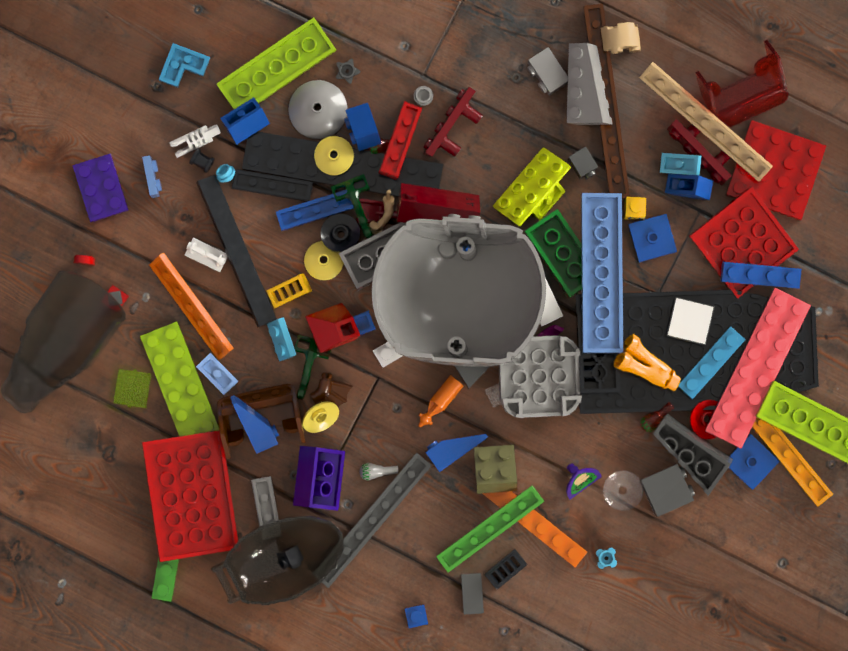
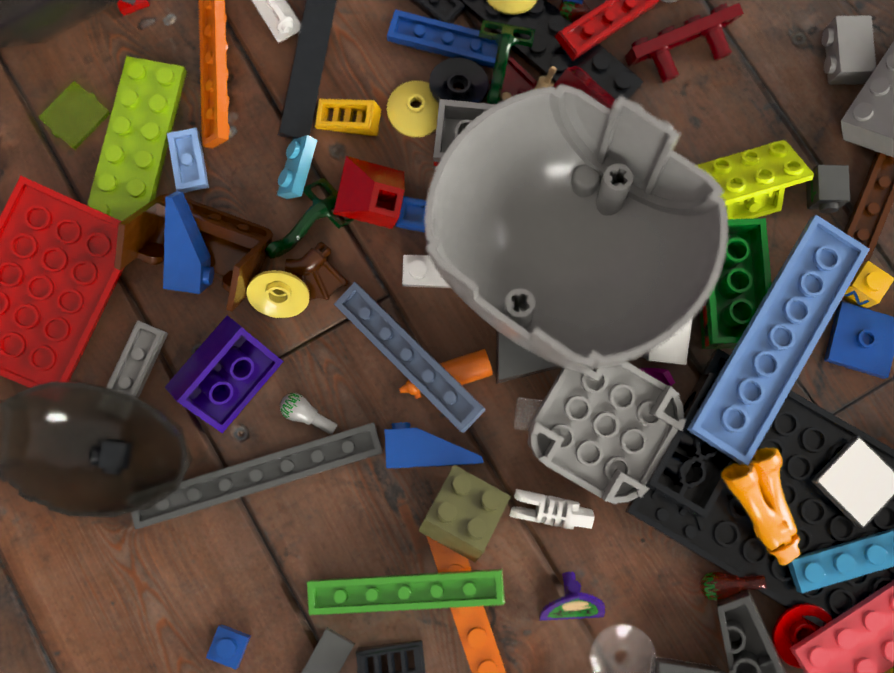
camera: 30 degrees right, 5 degrees down
(412, 405) = (410, 357): none -> sand blue plate
(540, 438) = (552, 510): none -> white hinge

